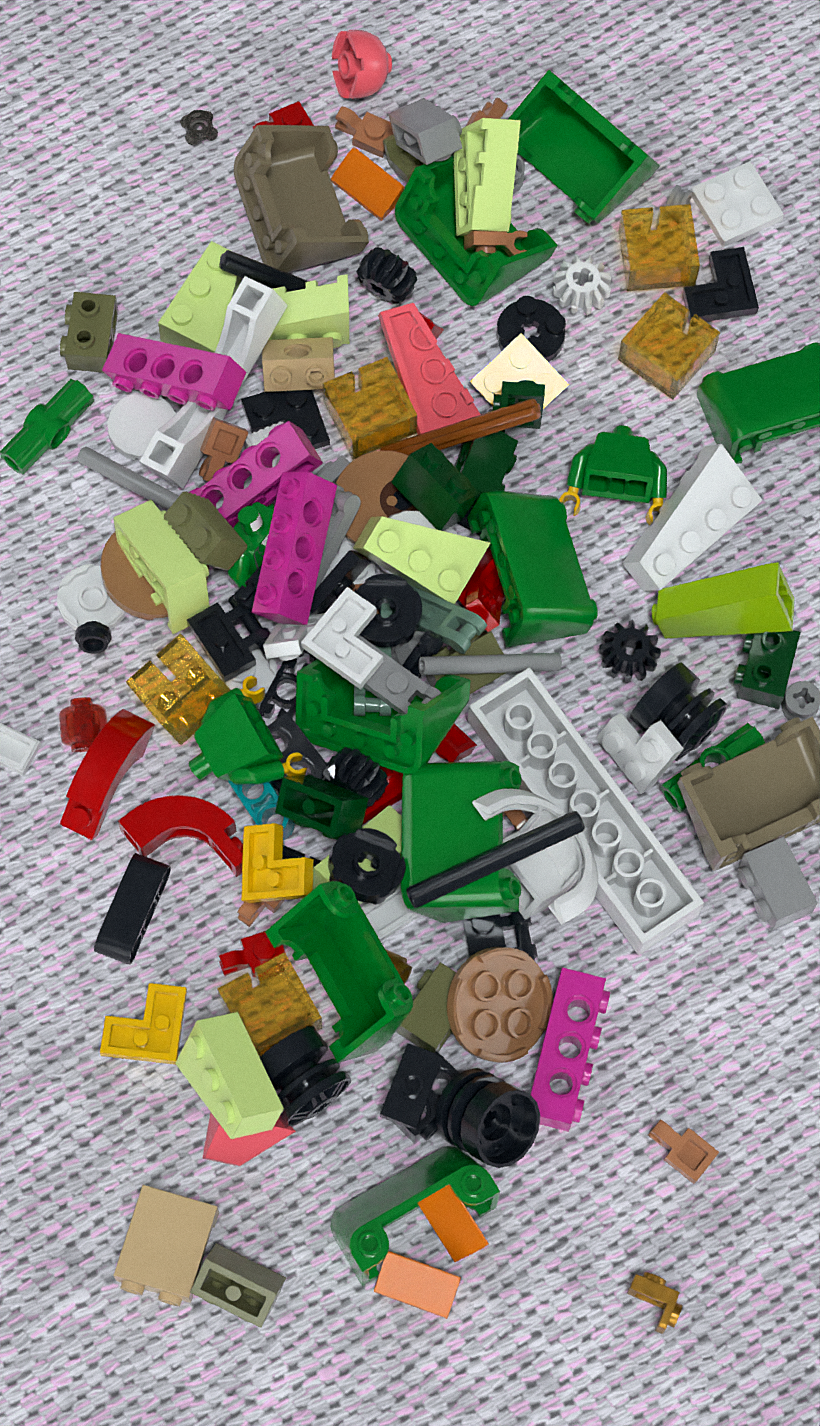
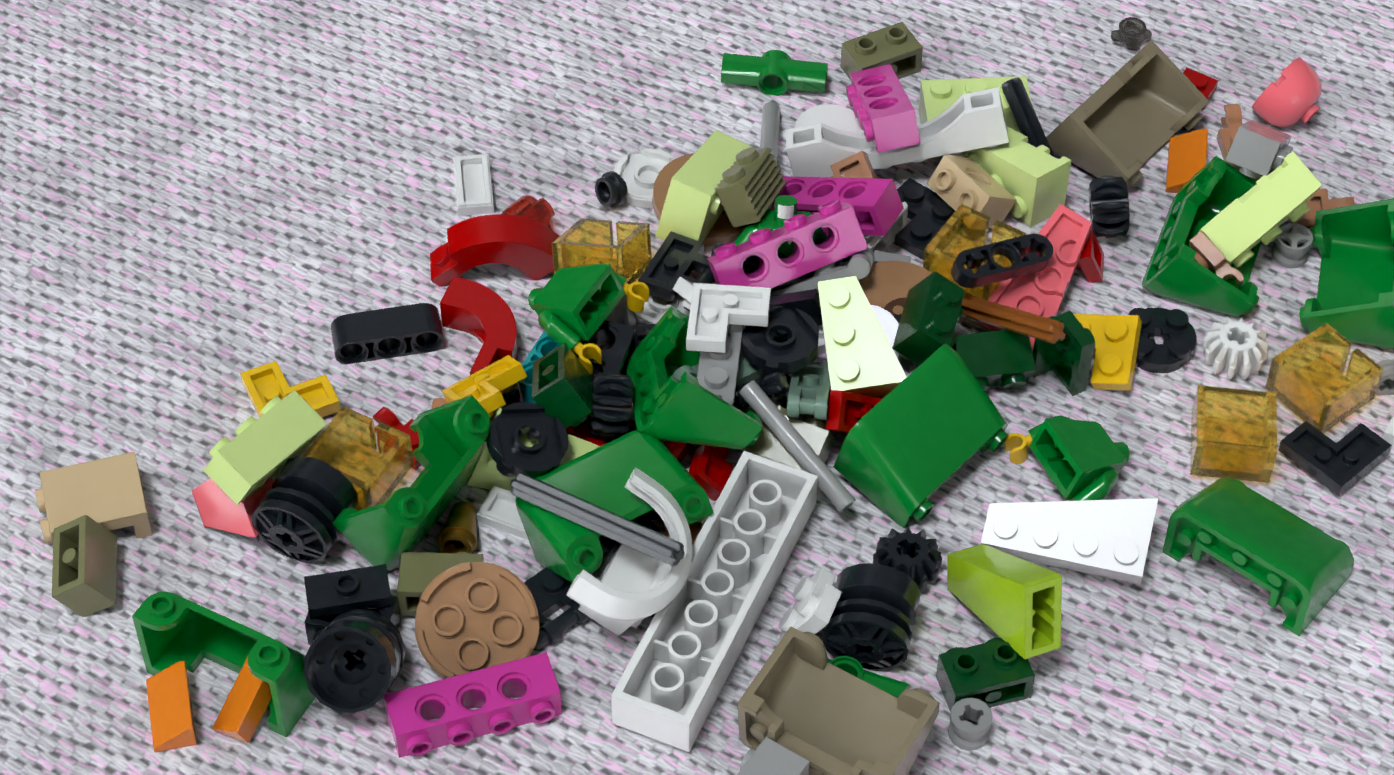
camera: 60 degrees right, 20 degrees down
(400, 404) = (990, 271): none -> black beam

